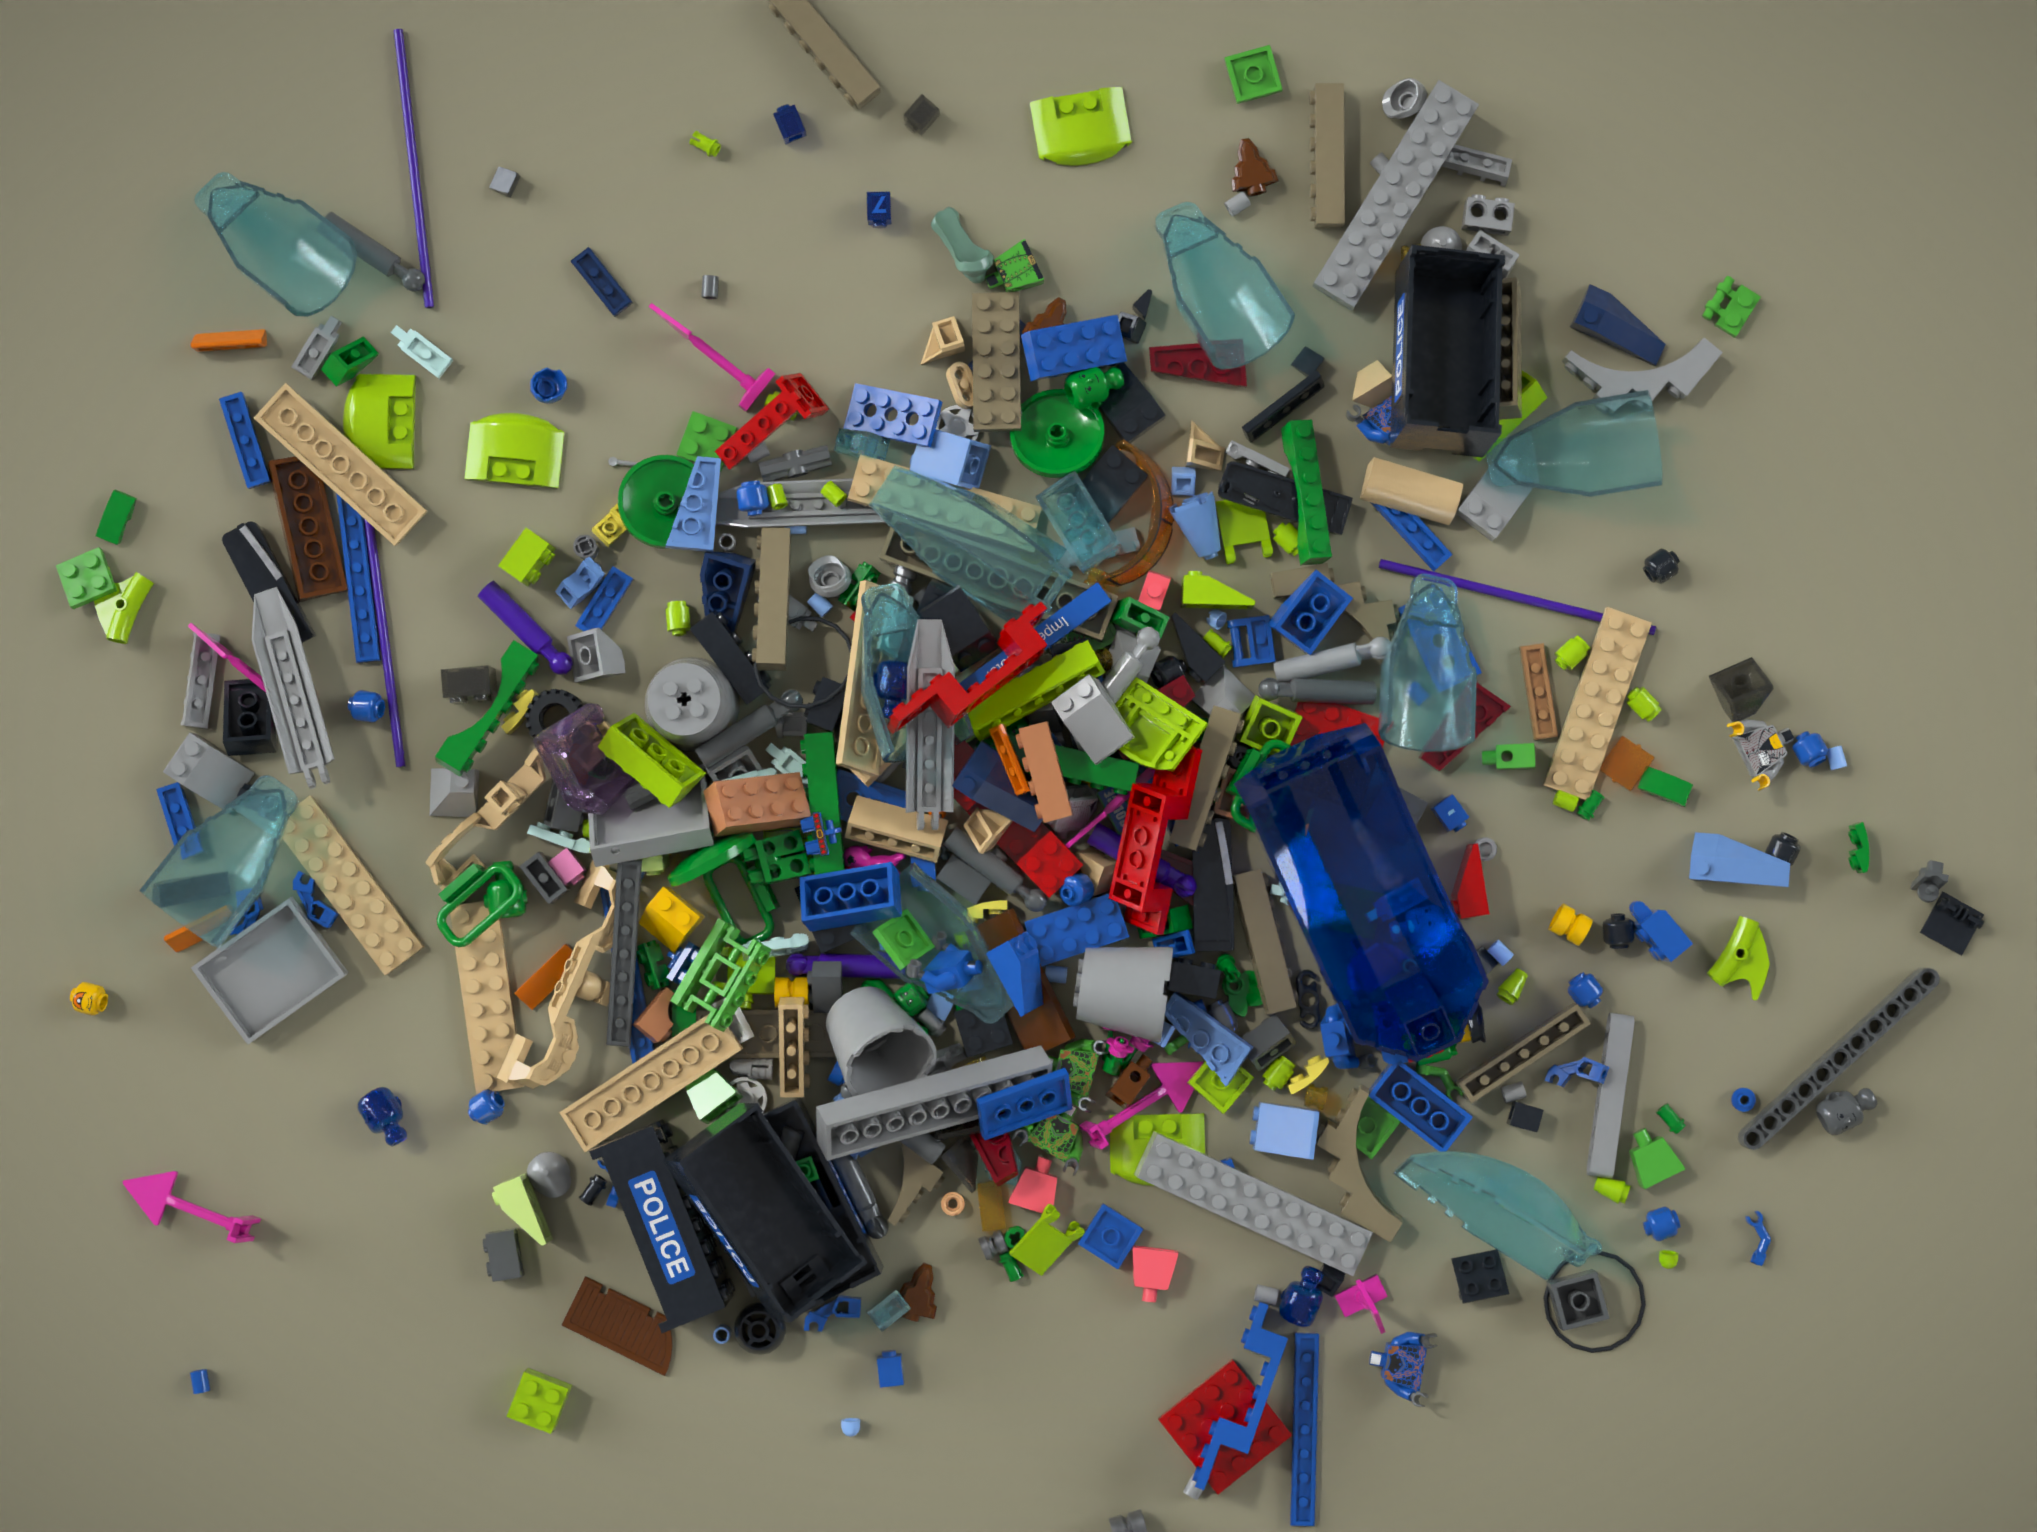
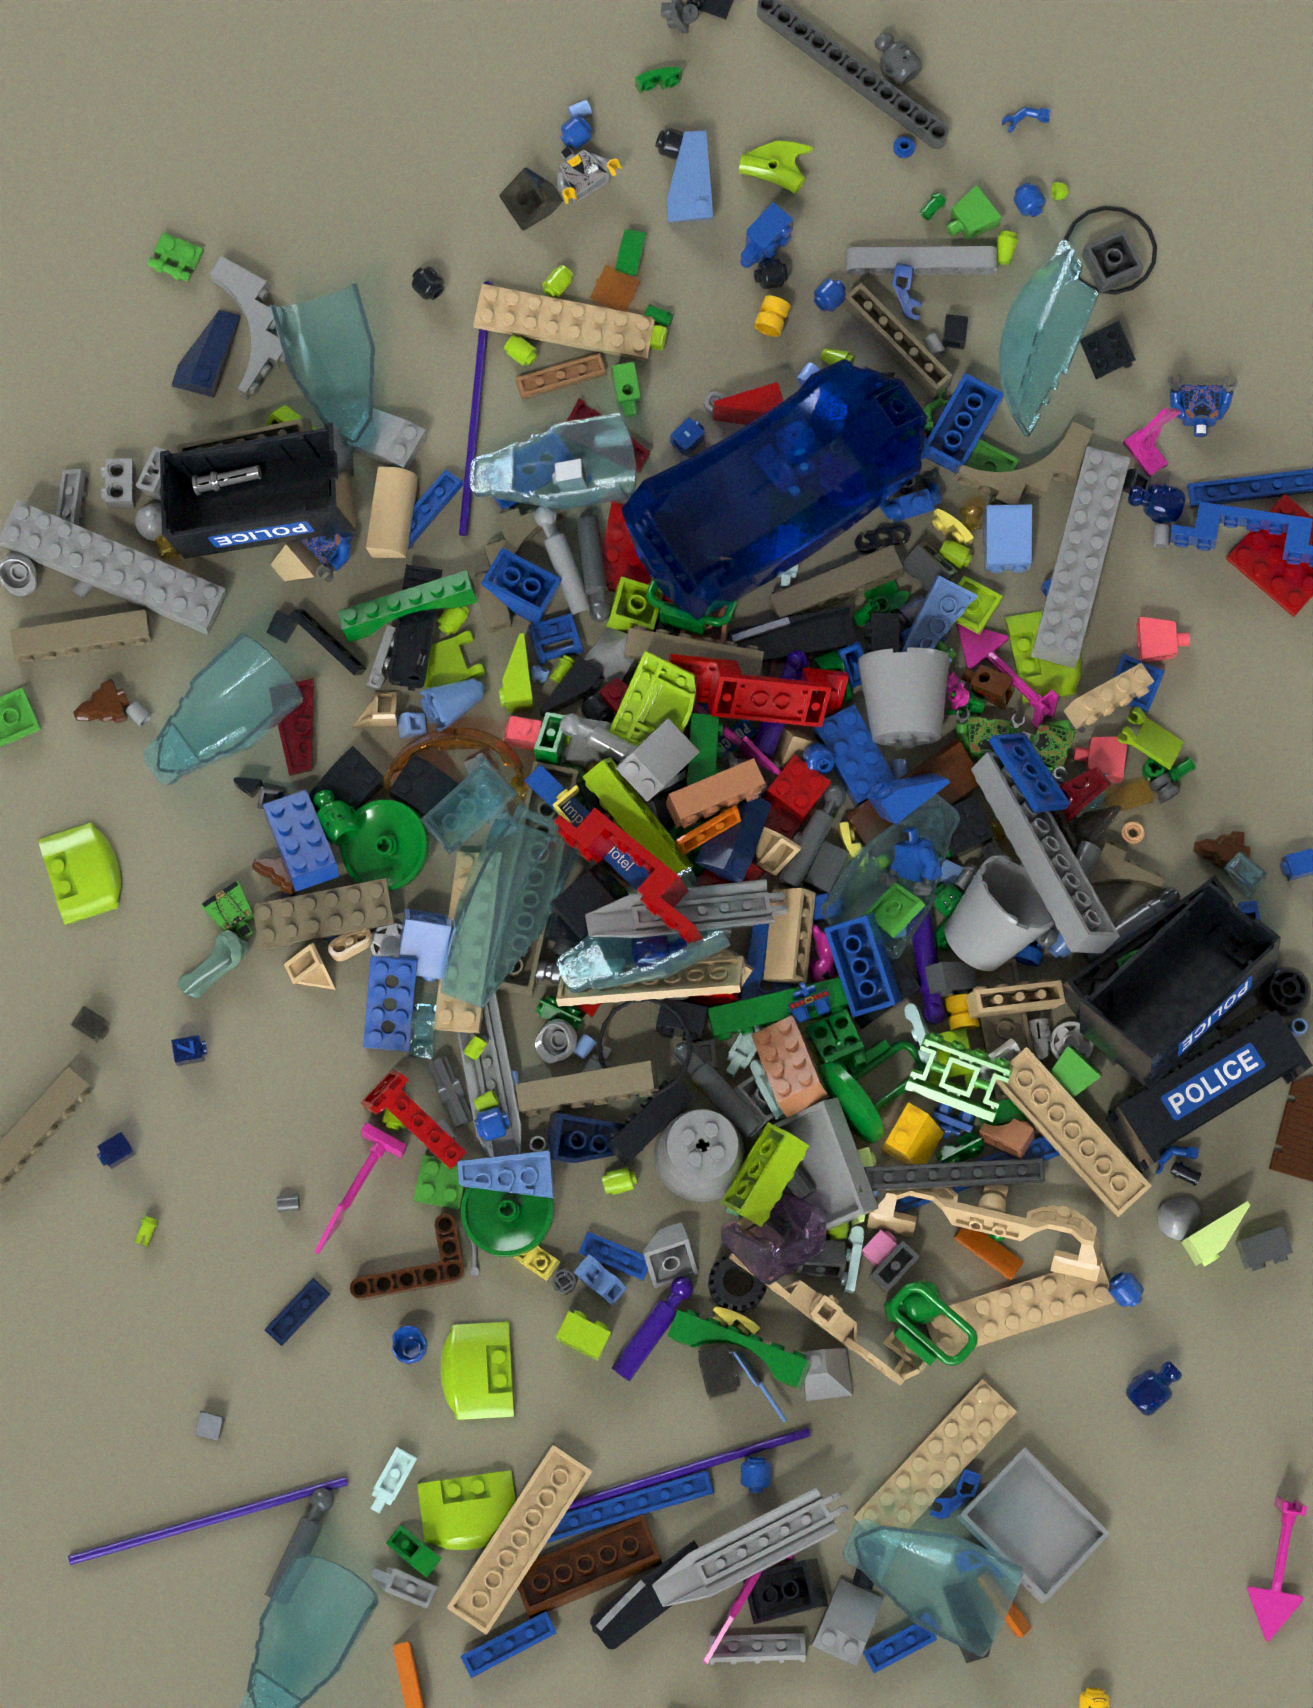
camera: 100 degrees left, 10 degrees down
(459, 719) = (757, 1381): none -> medium blue piece
(619, 404) = (418, 1272): none -> reddish brown beam
(1072, 620) = (562, 798): none -> light yellow bracket
(1095, 1207) = (1108, 696): none -> tan brick
(1419, 681) = (570, 475): none -> light grey brick
(1471, 313) = (216, 484): none -> light grey pin

